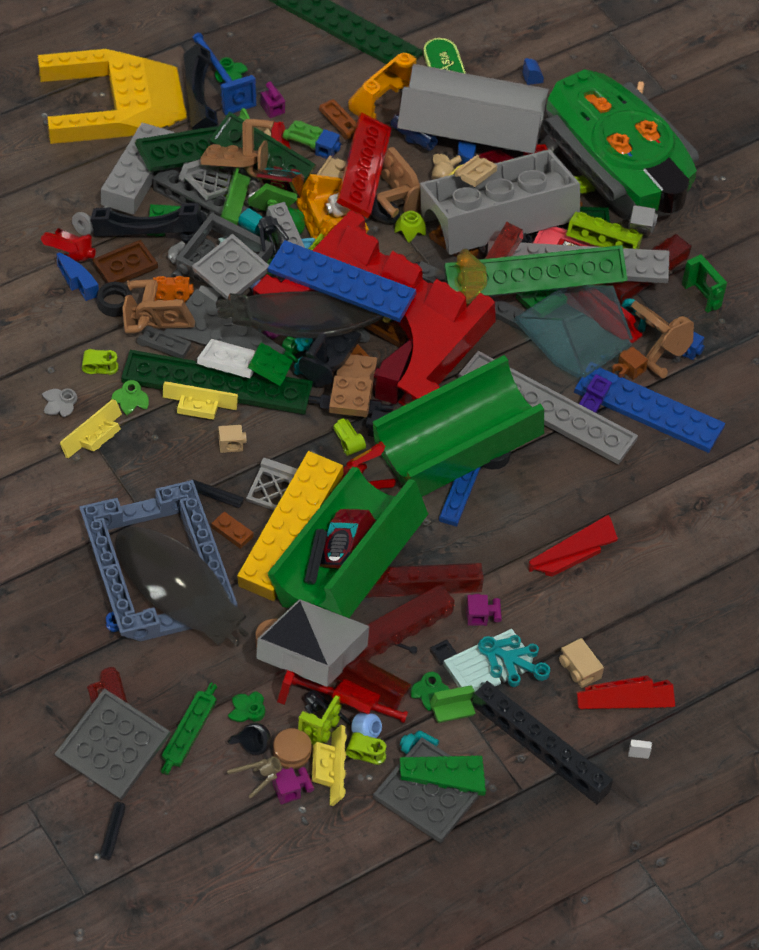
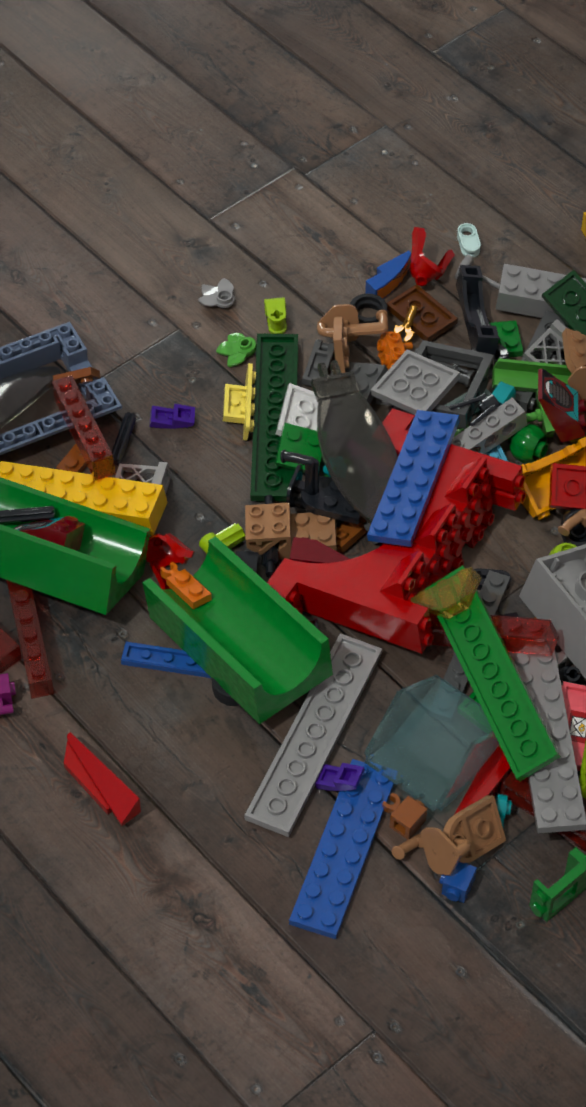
camera: 85 degrees right, 0 degrees up
(48, 217) = (468, 243): none -> light aqua piece
(94, 430) = (183, 325): light yellow bracket -> none
(139, 272) = (406, 326): none -> pearl gold bar
(149, 504) = (81, 376): none -> dark orange plate
(199, 455) = (178, 417): none -> dark purple slope
(229, 499) = (83, 428): none -> clear red brick
(231, 438) = (196, 437): tan brick -> none
(401, 461) = (186, 586): none -> orange plate

